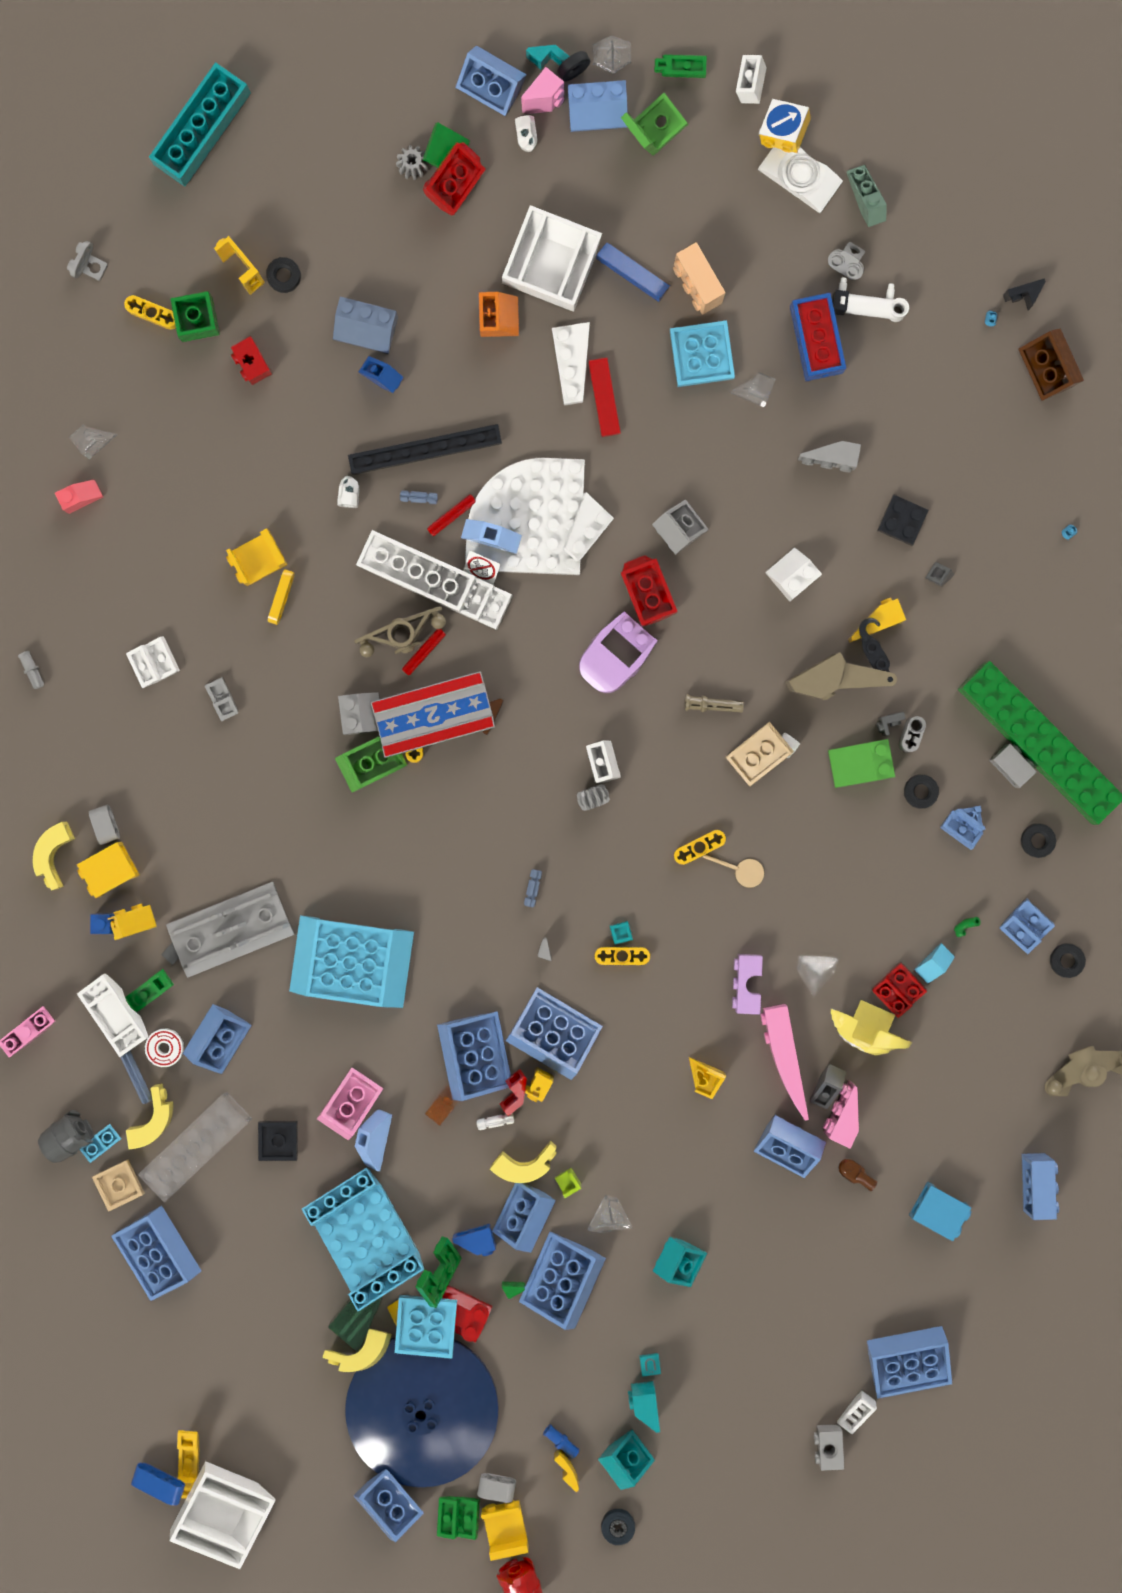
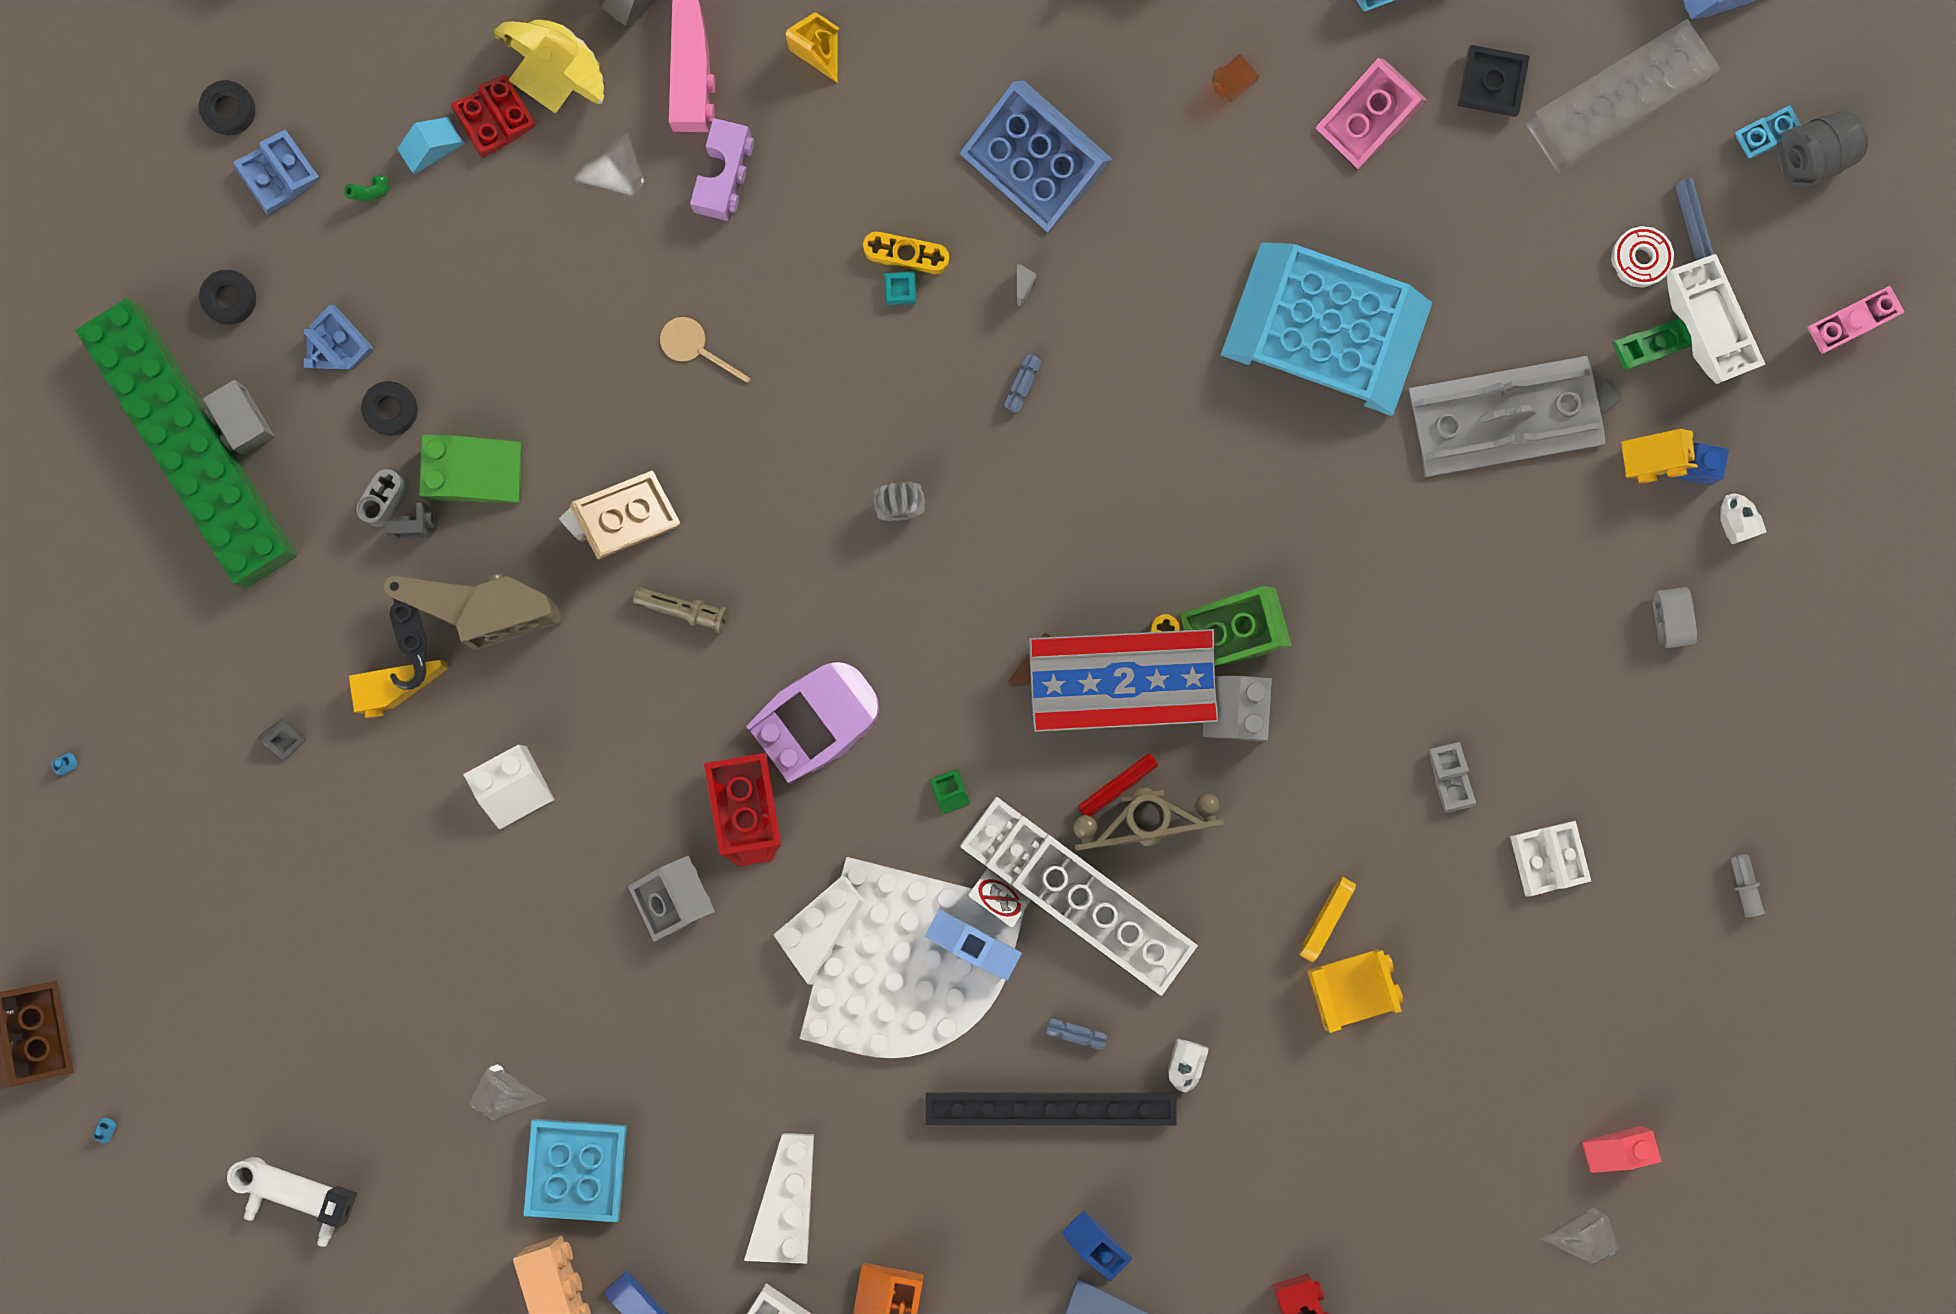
camera: 160 degrees left, 5 degrees down
(45, 851) = (1776, 592): light yellow arch -> none
(74, 894) = (1740, 518): none -> white rock
(107, 869) = (1682, 545): yellow panel -> none
(118, 1185) = (1752, 63): tan plate -> none
(145, 1134) = (1694, 131): light yellow arch -> none
(216, 1039) = (1559, 251): medium blue slope -> none
(373, 1138) = (1346, 53): light blue slope -> none
(451, 515) = (1029, 993): red axle -> none
(474, 1055) = (1165, 146): medium blue slope -> none
(495, 1121) = (1153, 44): white axle -> none
(517, 1084) = (1115, 68): red slope -> none
(525, 627) = (949, 791): none -> green slope
(539, 1085) = (1072, 78): yellow hinge -> none
(603, 761) = (871, 552): white brick -> none
(604, 397) = (746, 1133): red tile -> none
(689, 858) = (770, 380): yellow beam -> none
(817, 337) = (384, 1157): brick -> none
(839, 455) = (393, 960): light grey slope -> none
(847, 262) = (310, 1270): light grey bracket -> none
(902, 520) = (319, 836): black plate -> none
(1029, 291) = (33, 1158): black slope -> none

